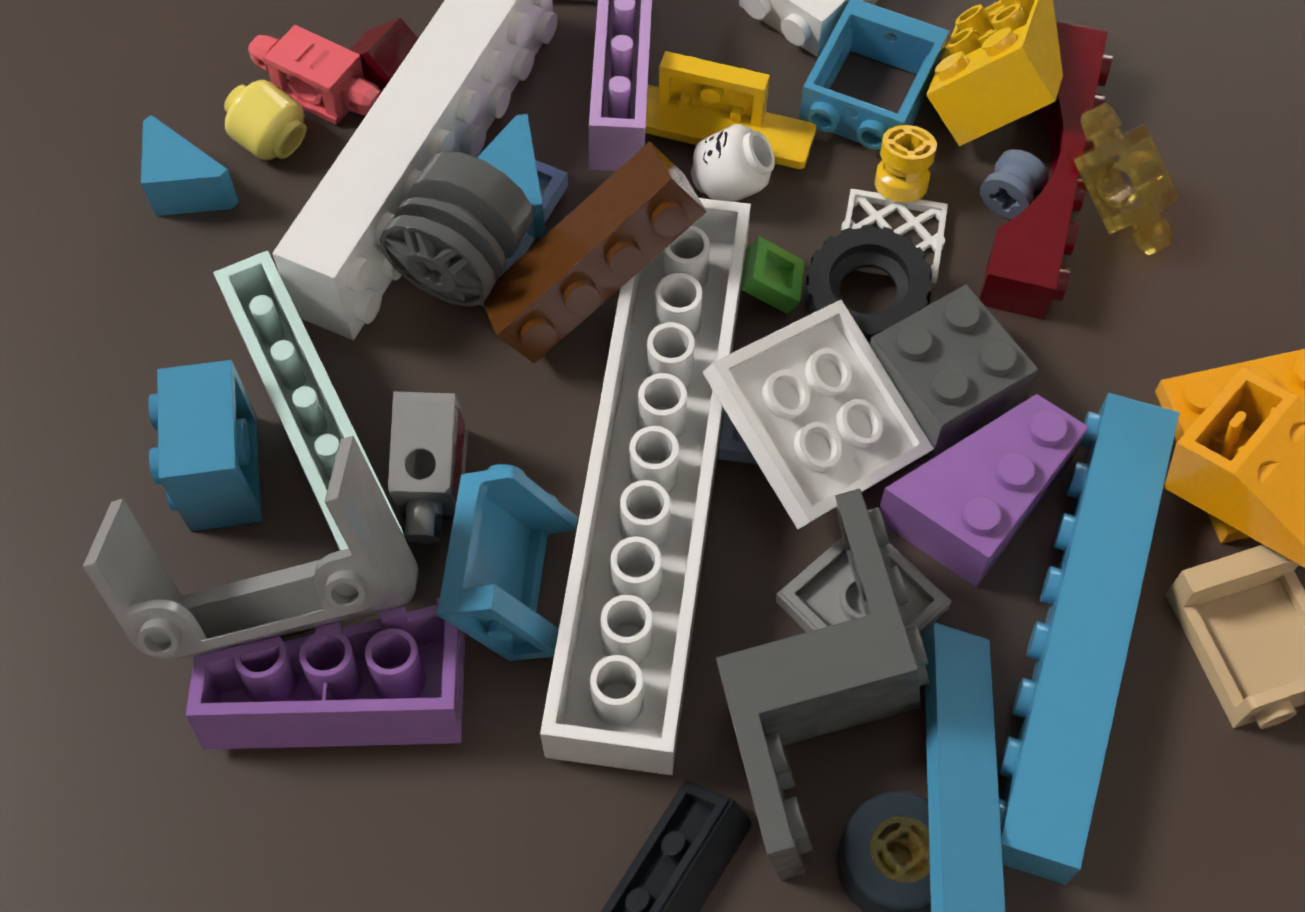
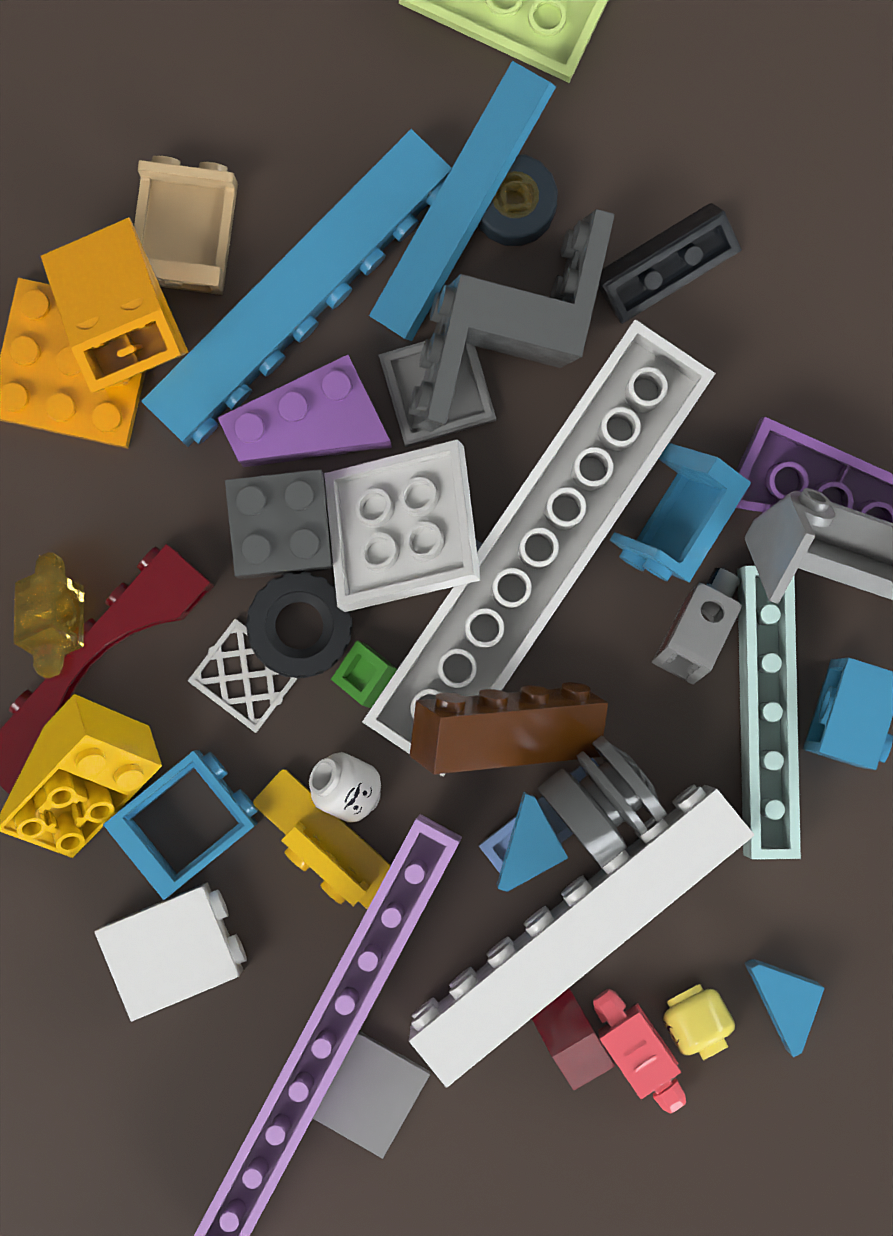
camera: 155 degrees left, 25 degrees up
(905, 162) = (213, 715): yellow wheel -> none
(1014, 183) = (130, 664): sand blue wheel -> none

